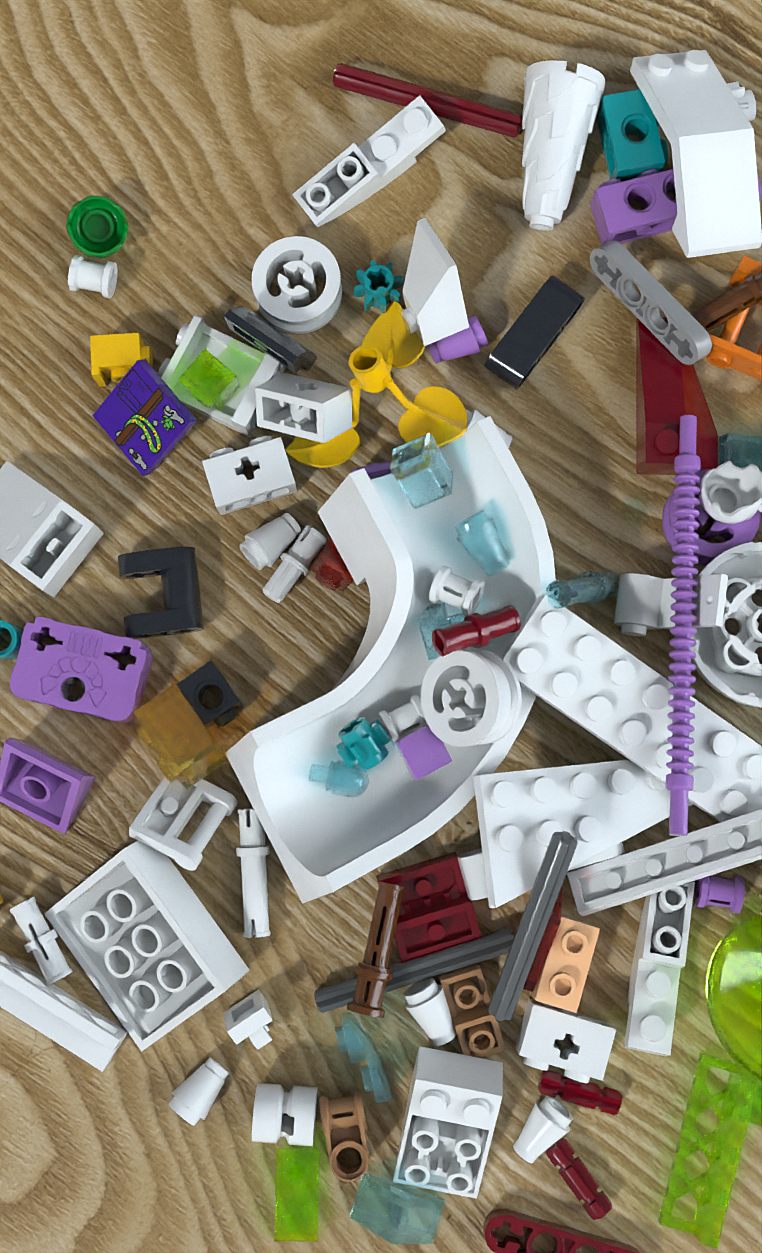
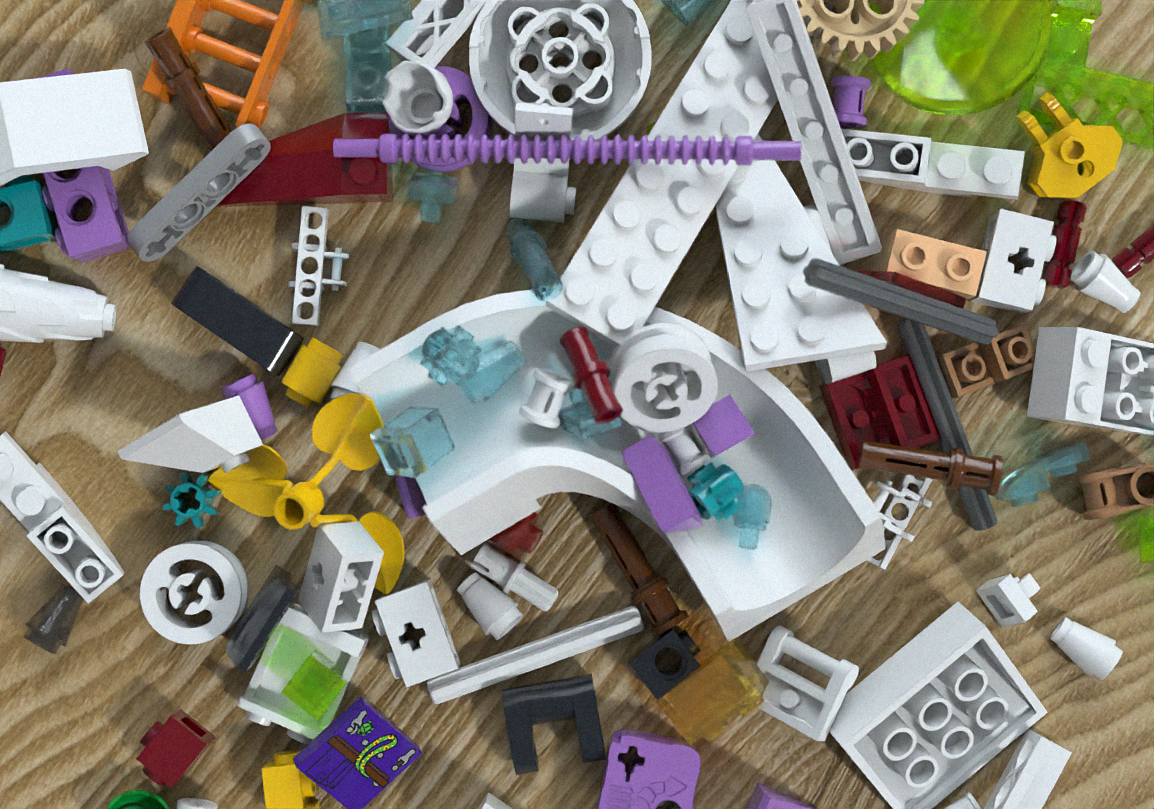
camera: 85 degrees left, 5 degrees up
(161, 261) = (173, 748): none -> dark red brick
(224, 580) = (535, 654): none -> white axle
(254, 874) = (833, 604): white pin -> none
(269, 1118) = (1105, 555): white wheel -> none
(278, 166) = (54, 620): none -> clear smoke cone
(279, 683) = (648, 587): none -> reddish brown pin
(330, 909) = (887, 518): none -> white piece
(371, 692) = (662, 486): none -> medium lavender slope
(430, 1009) = (987, 406): white cone -> none
(486, 394) = (312, 372): none -> yellow brick
(498, 504) = (450, 356): none -> clear light blue gear
(593, 404) = (318, 252): none -> white piece
(643, 508) = (433, 192): none -> clear light blue tile
(676, 1104) = (1062, 150): none -> yellow hinge

